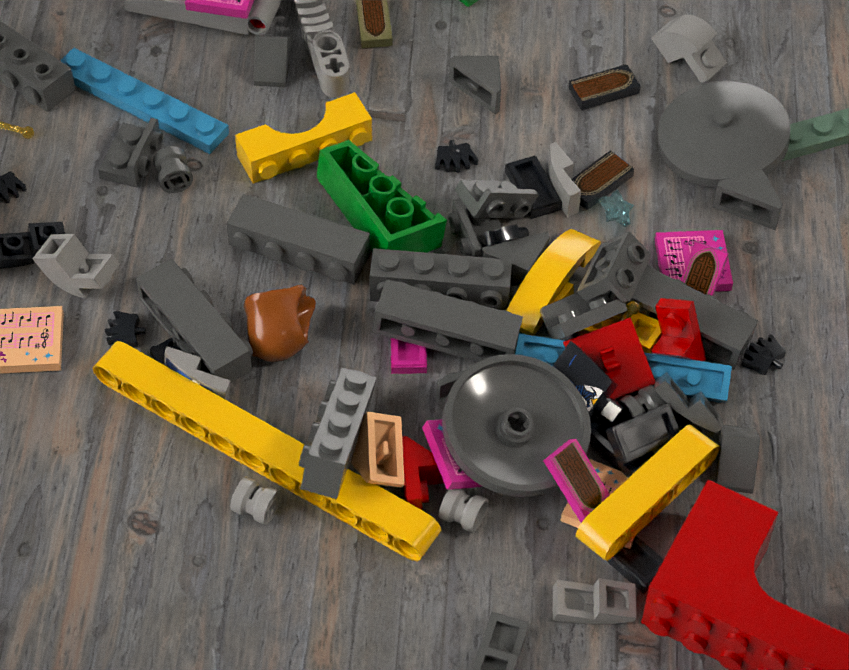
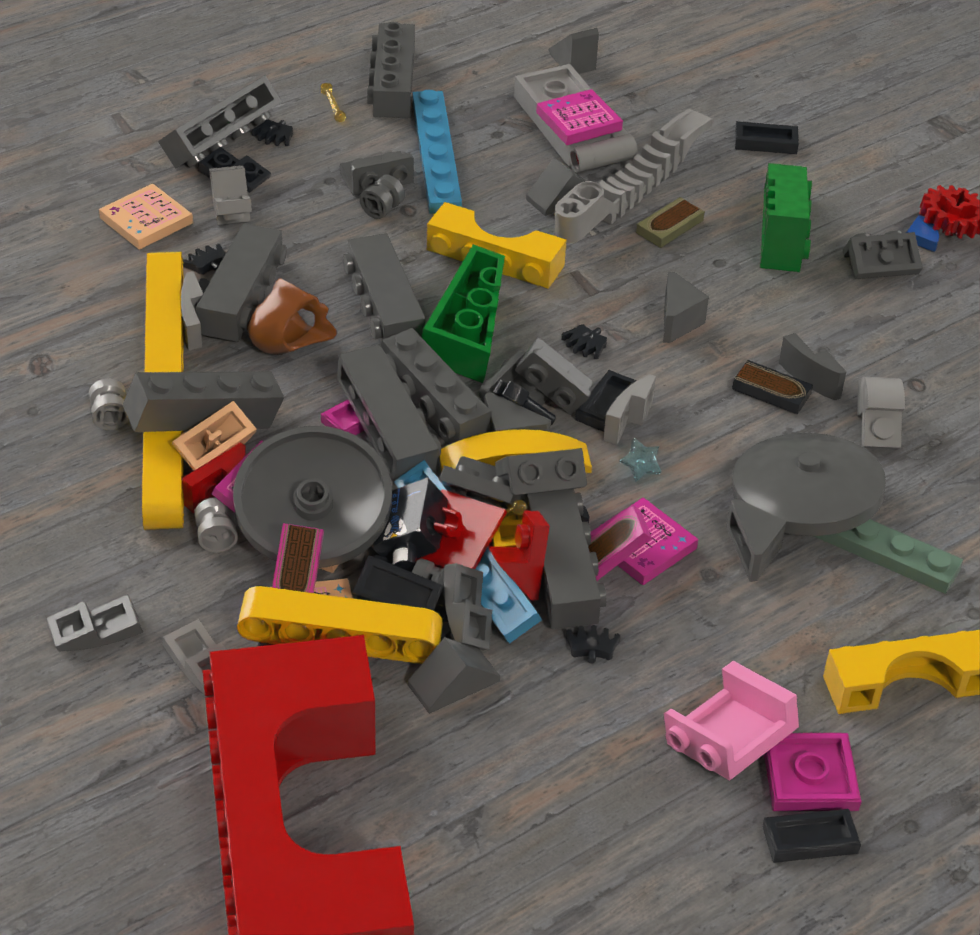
camera: 50 degrees right, 10 degrees down
(602, 178) = (670, 435): tile -> none
(607, 54) = (816, 369): none -> dark grey slope

